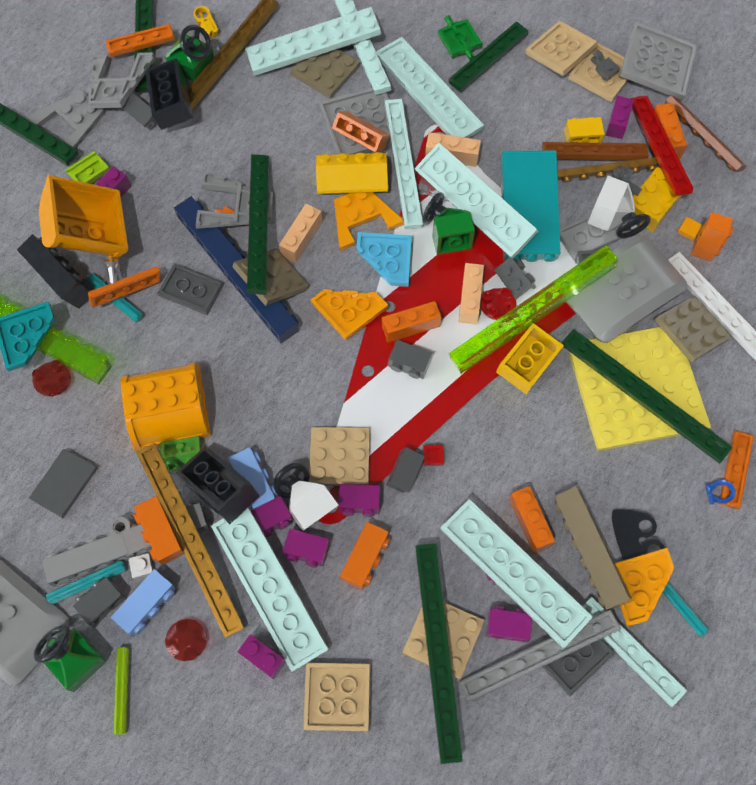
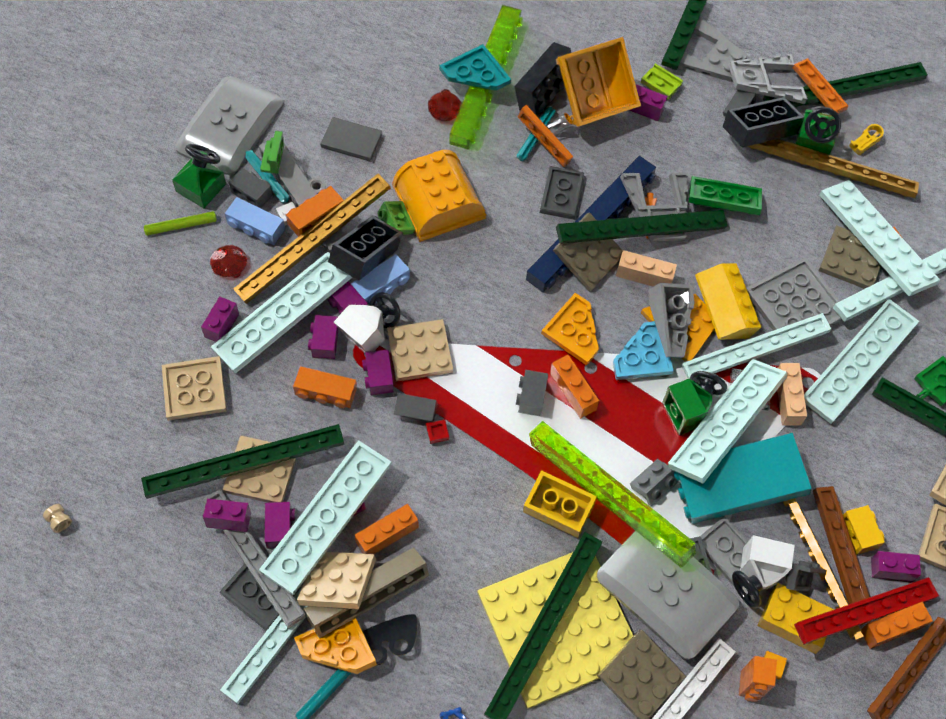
camera: 75 degrees right, 5 degrees down
(69, 566) = (273, 154): none -> bright green bracket
(236, 148) = (725, 195): none -> green plate
(352, 221) = (671, 311): none -> light grey wedge
(360, 131) = (777, 297): orange brick -> none
(471, 293) = (621, 438): light nougat brick -> none
(497, 303) = (620, 466): red dish -> none
(497, 674) = (227, 515): none -> magenta brick
(583, 571) = (337, 581): none -> tan plate

